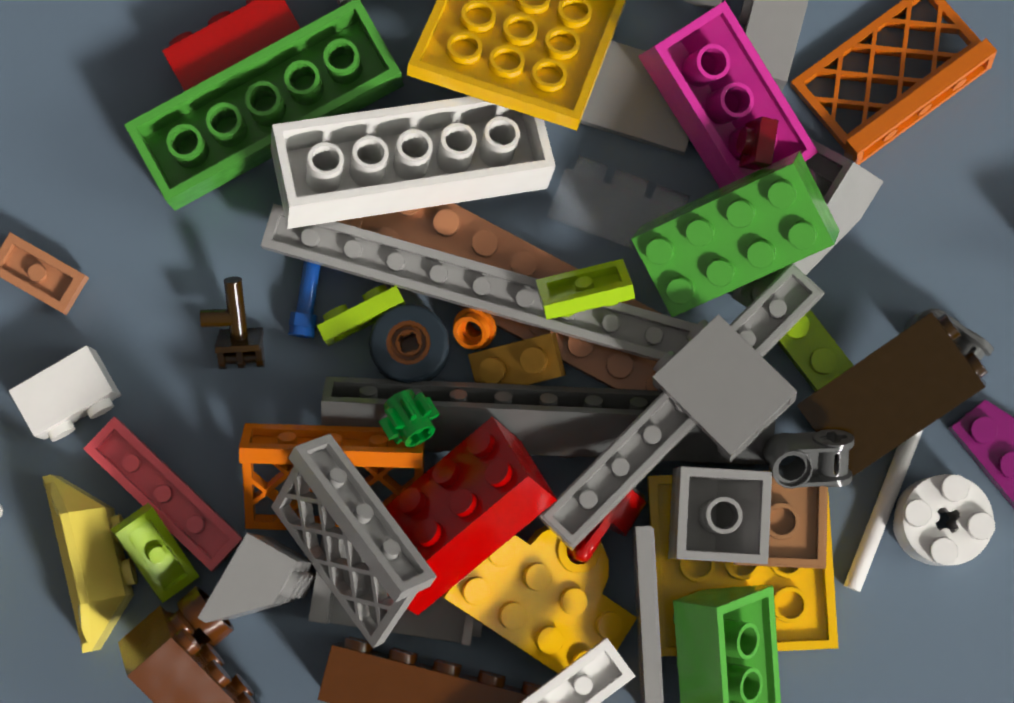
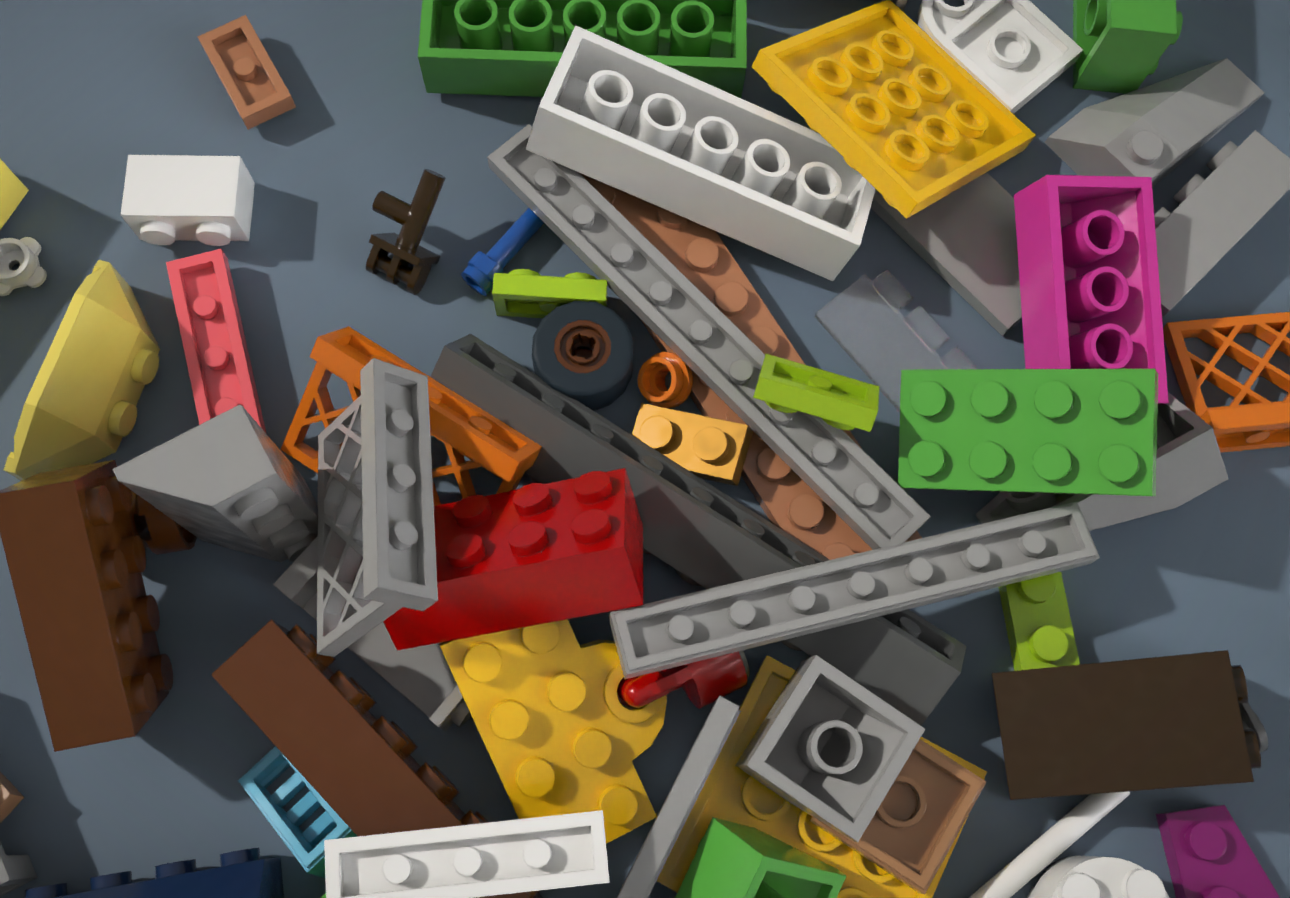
camera: 25 degrees right, 10 degrees down
(155, 552) = (158, 398): lime plate -> none
(409, 418) = (528, 413): green gear -> none
(723, 386) = (923, 593): light grey panel -> none
(757, 143) = (1111, 340): dark red plate -> none
(819, 459) = (988, 752): dark grey piece -> none

